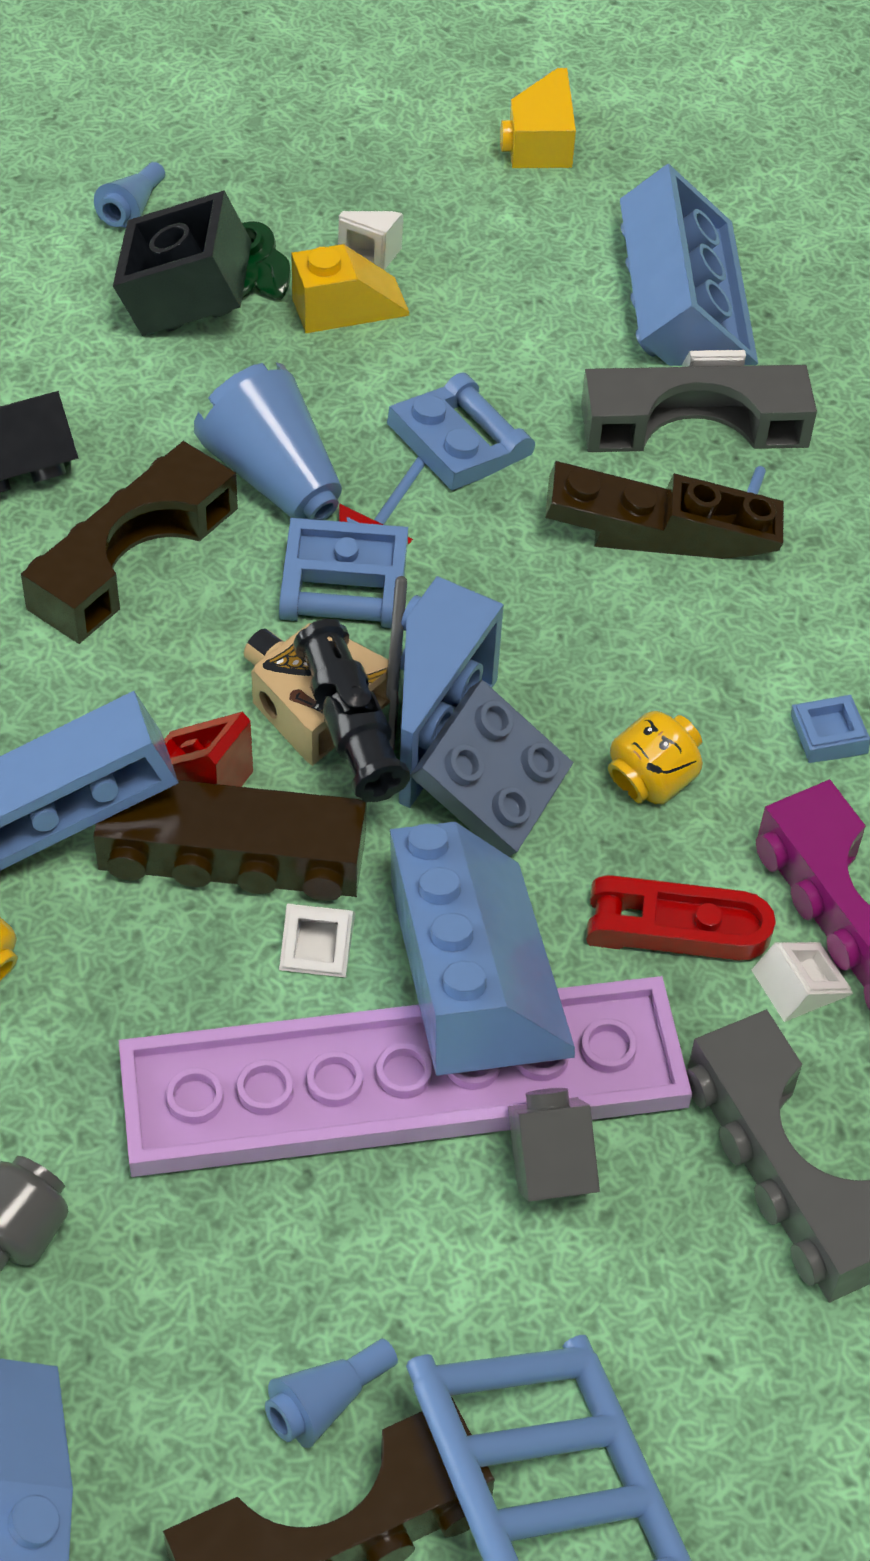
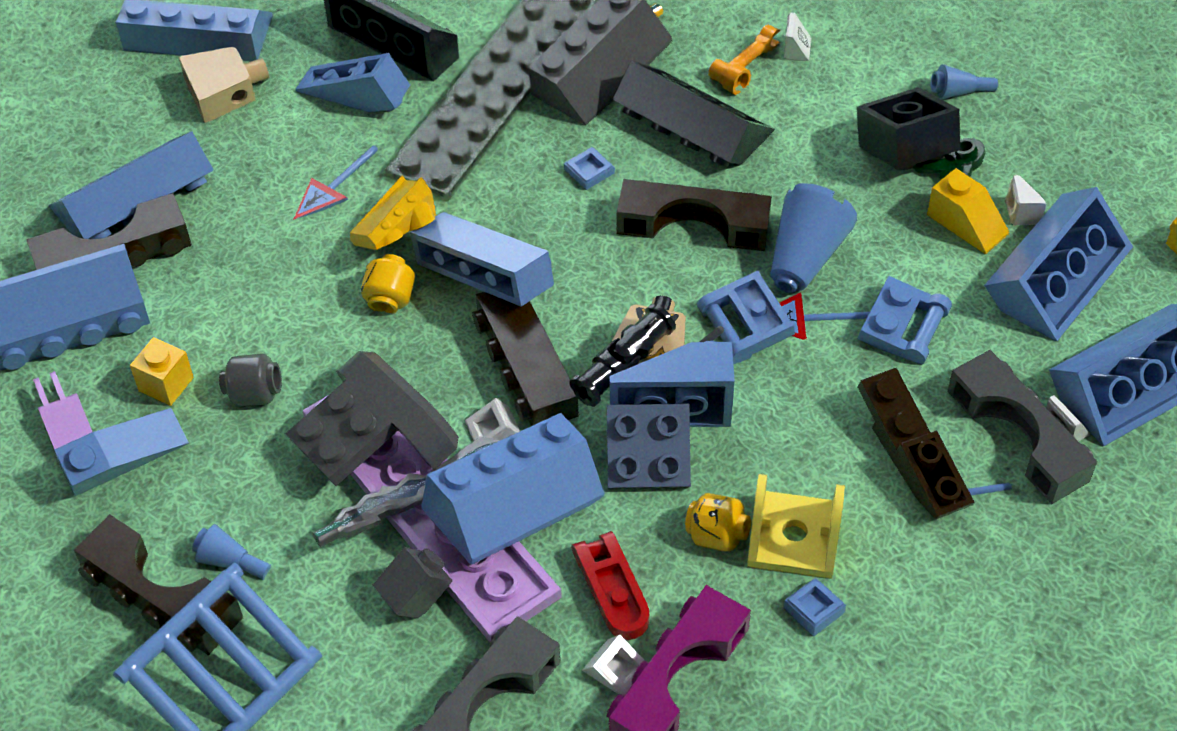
camera: 65 degrees right, 0 degrees up
(213, 751) = (566, 323): red slope -> none
(224, 1073) = (367, 413): none -> dark grey piece
(386, 1076) = (386, 502): none -> flat silver sword
(481, 256) = (1060, 263): none -> medium blue slope
(729, 661) = (817, 518): none -> light yellow hose

